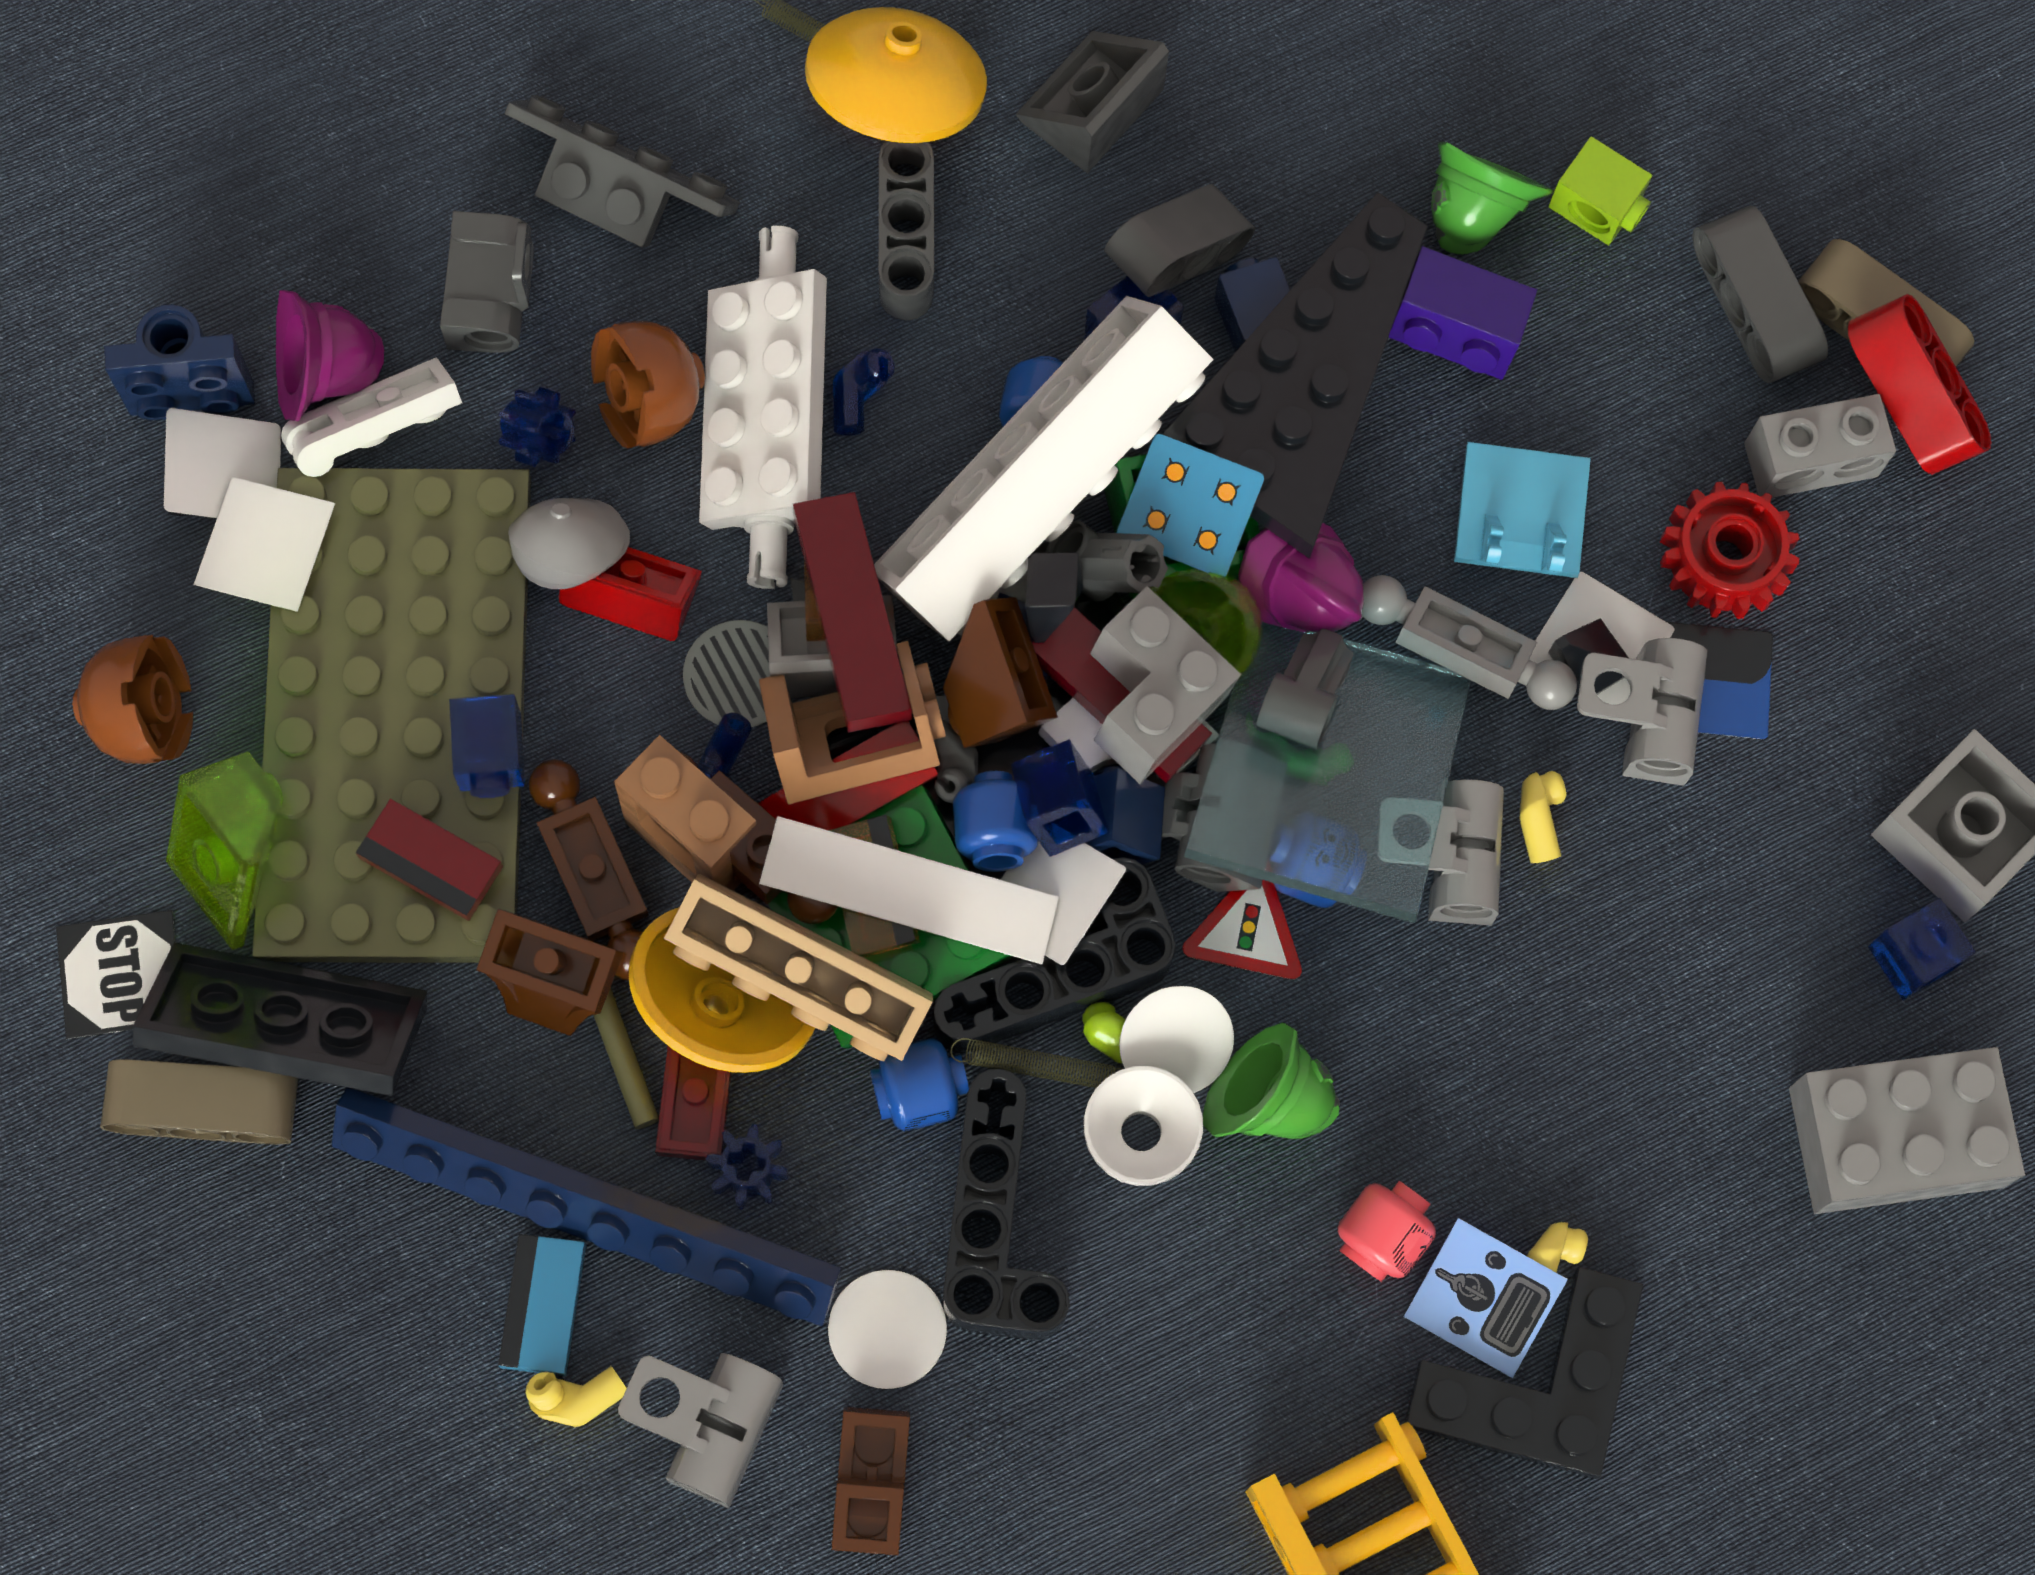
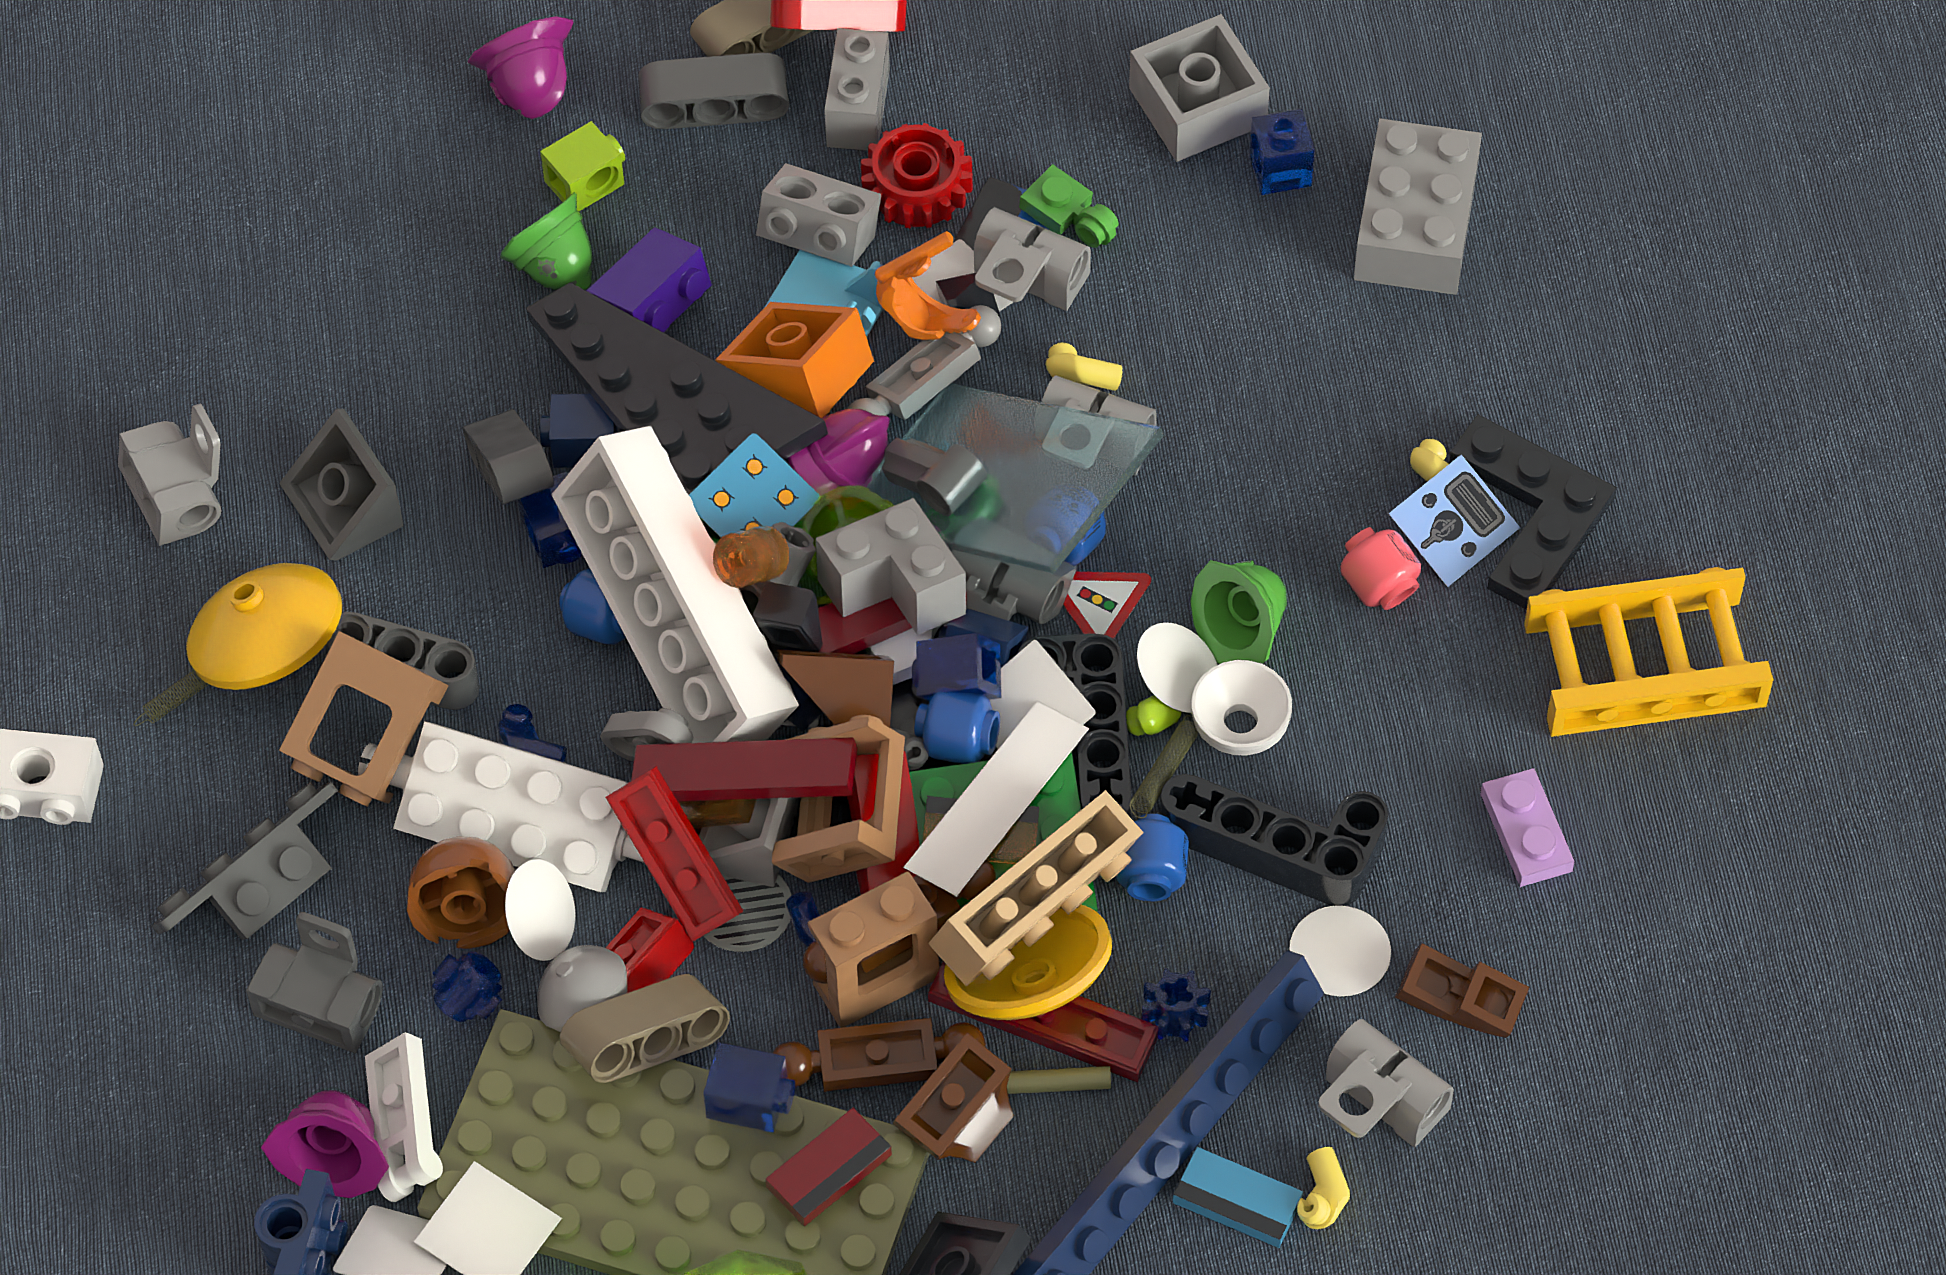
camera: 65 degrees left, 15 degrees down
(533, 618) = (644, 1028): none -> dark tan beam
(645, 466) = (540, 910): none -> white sticker
(746, 577) = (674, 854): none -> red tile
(847, 215) = (382, 678): none -> medium nougat window
(890, 502) = (634, 728): none -> light grey plate
(1087, 519) = (750, 556): none -> clear orange wheel
(1109, 1496) = (1527, 827): none -> lavender plate
(1410, 496) = (802, 353): none -> orange brick
(1534, 604) = (910, 306): none -> orange helmet
(1628, 459) = (818, 214): none -> light grey brick
(1704, 88) = (527, 65): none -> magenta piece
(1761, 721) = (1060, 201): none -> bright green plate

